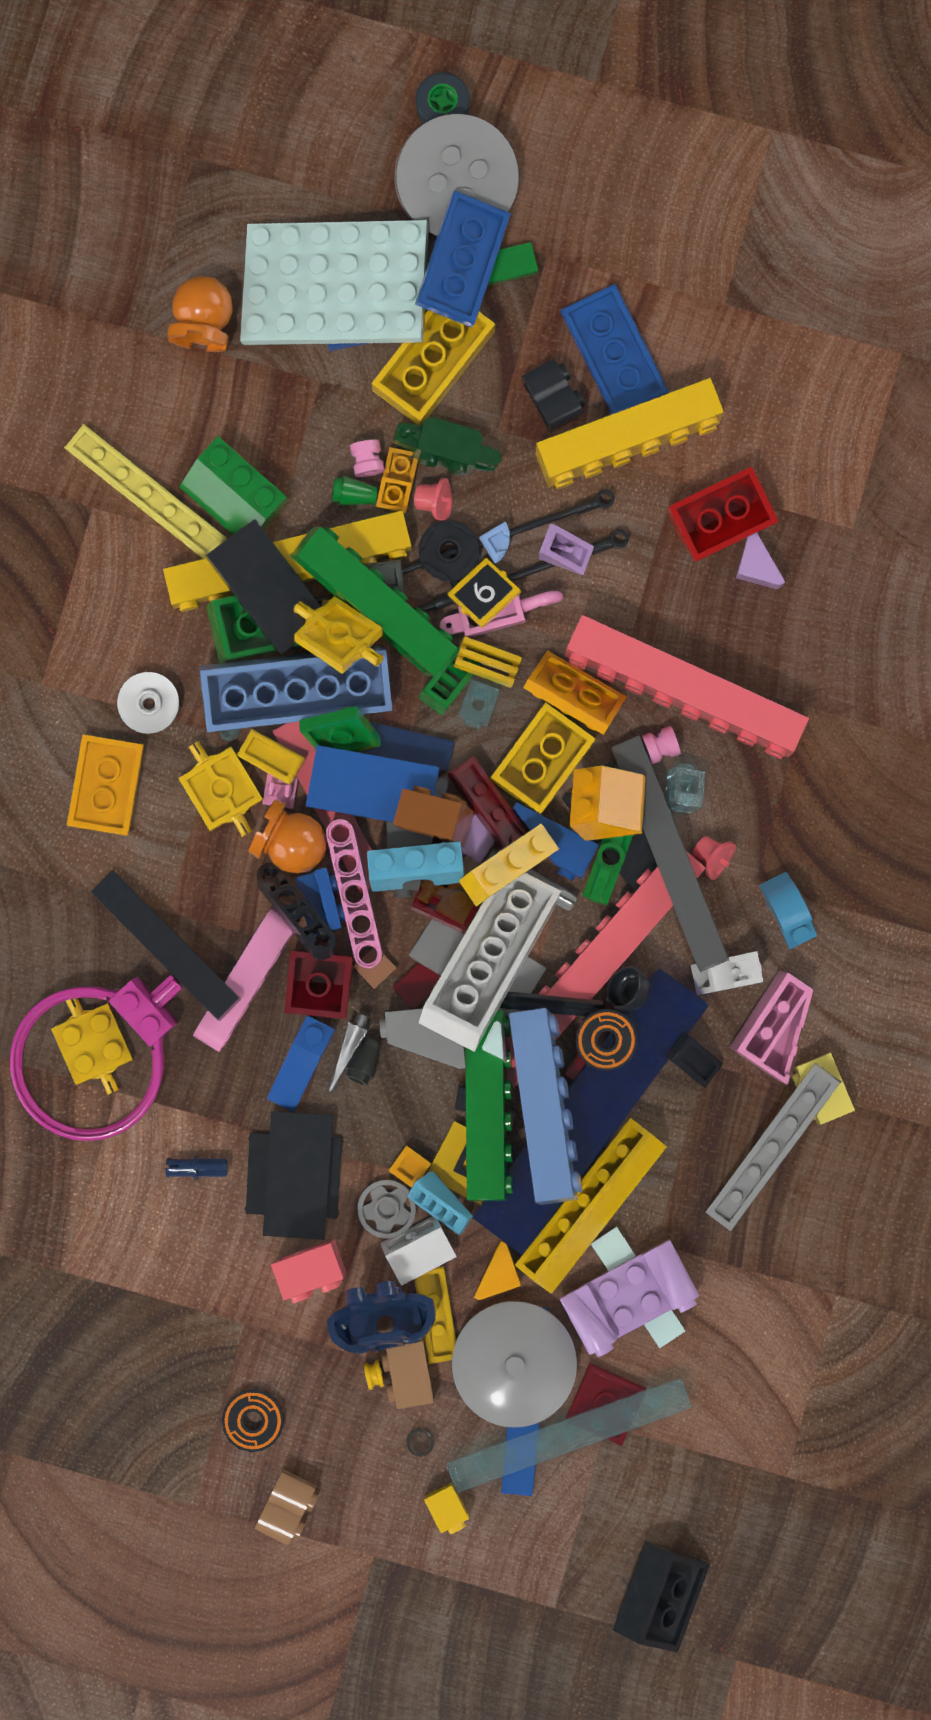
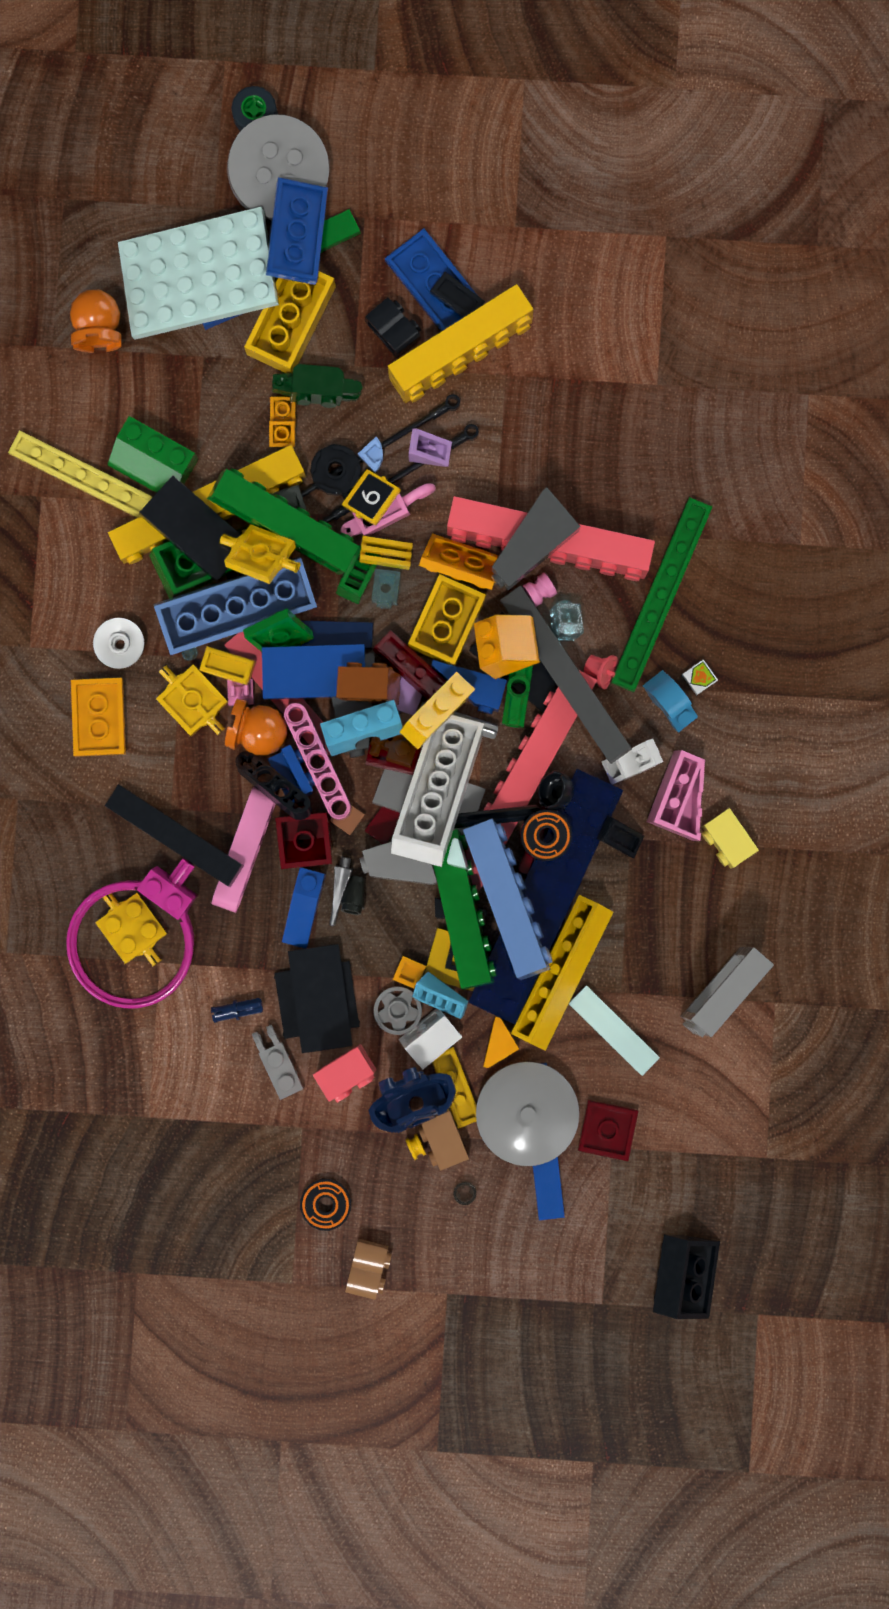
camera: 10 degrees left, 0 degrees up
(231, 1243) = (278, 1065): none -> light grey hinge
(352, 492) = (247, 439): green cone -> none
(367, 458) = (254, 409): bright pink wheel -> none
(434, 498) = (315, 430): coral piece -> none
(447, 1509) = (498, 1242): yellow brick -> none
(568, 1435) = (583, 1161): clear light blue tile -> none
(629, 1297) = (609, 1039): lavender piece -> none
(636, 374) = (456, 295): none -> black tile
(669, 686) = (537, 537): none -> dark grey slope
(722, 514) = (549, 393): red slope -> none
(757, 565) = (587, 429): lavender slope -> none
(773, 1146) = (699, 893): light grey plate -> none
(779, 1270) = (726, 991): none -> light grey window
(804, 781) = (661, 595): none -> green tile
(829, 889) = (699, 677): none -> tile

